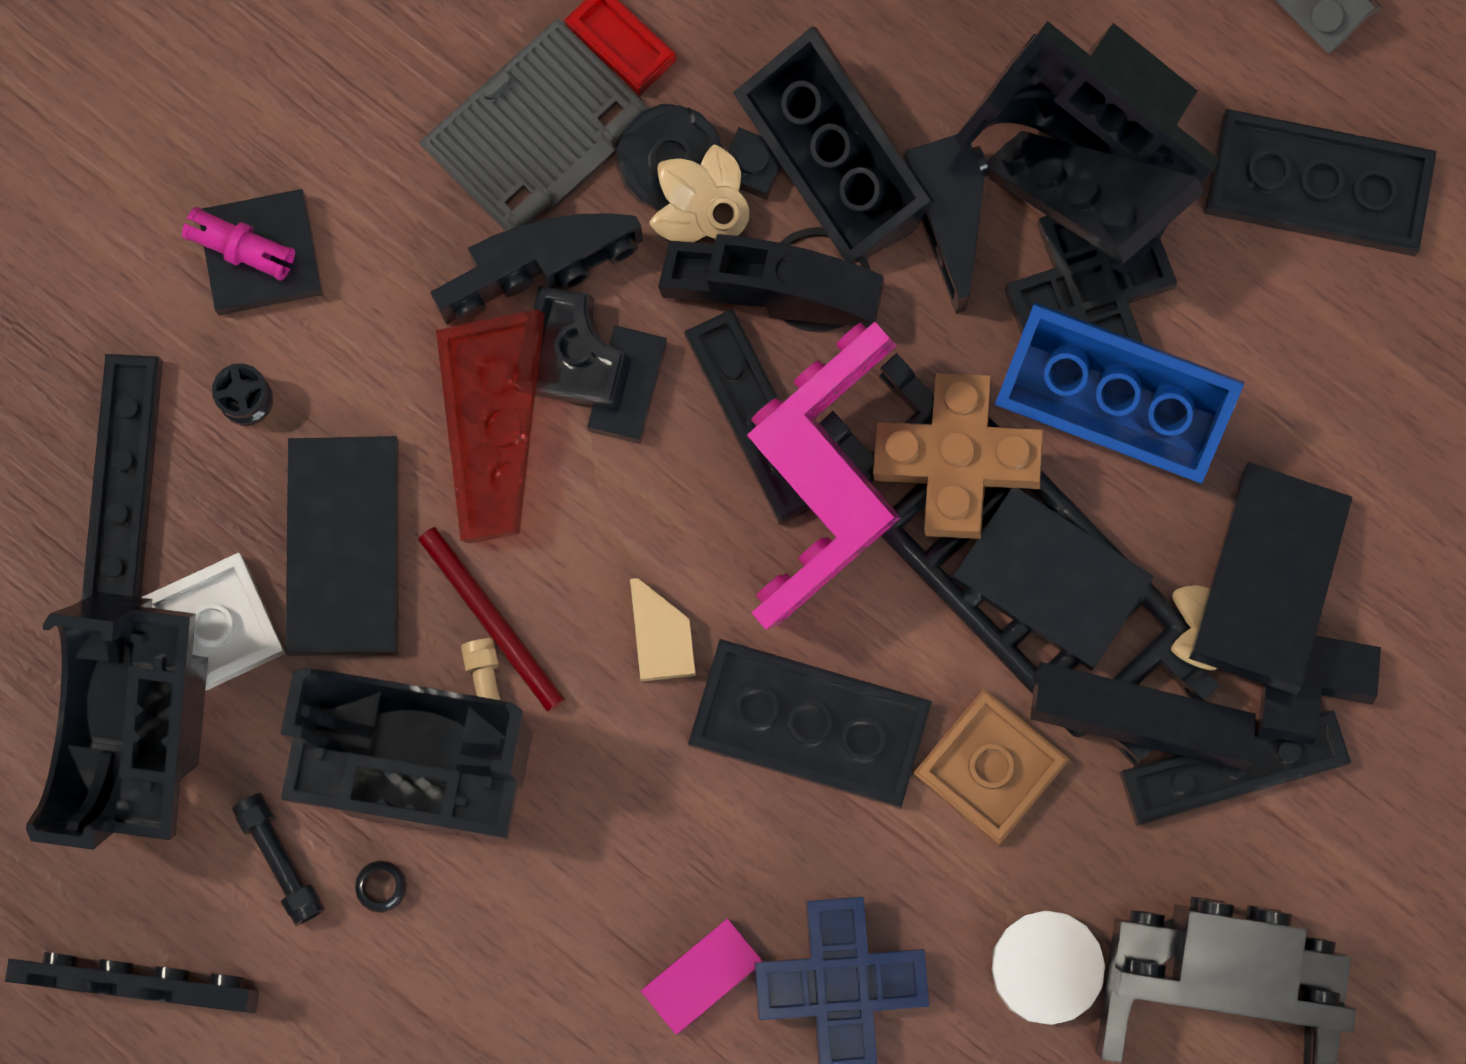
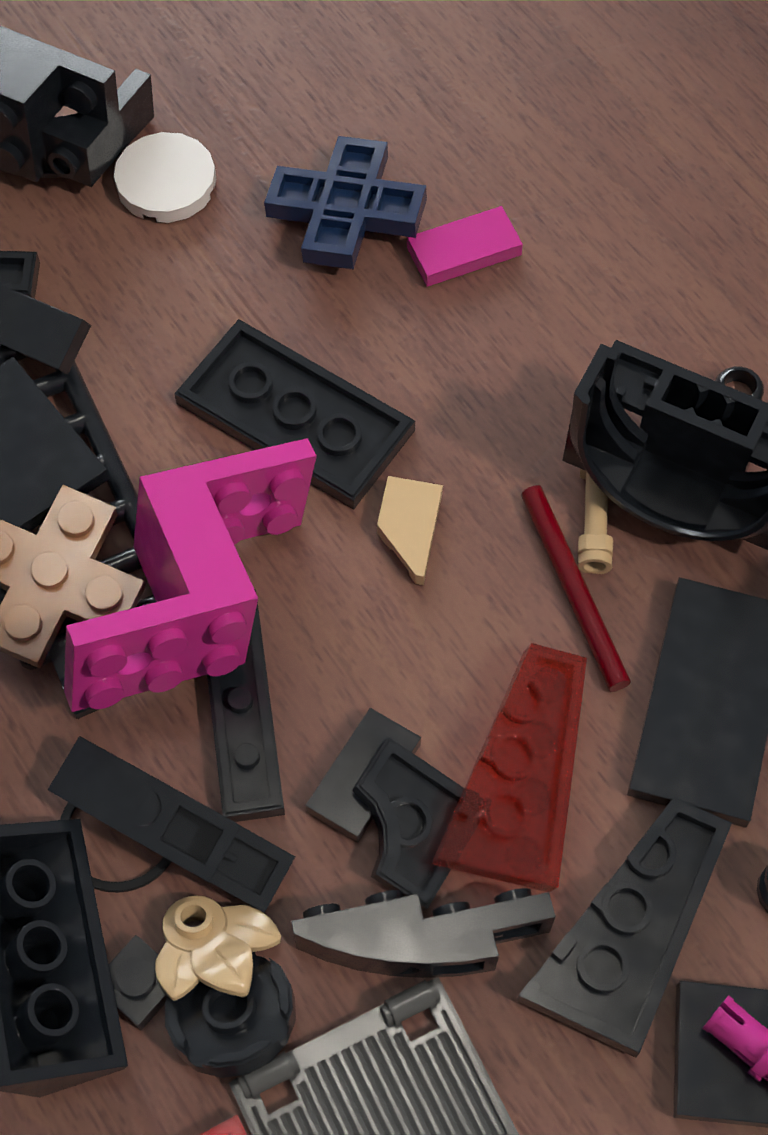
camera: 165 degrees left, 15 degrees down
(368, 309) = (625, 945): none -> black wing
(991, 767) = (146, 334): medium nougat tile -> none

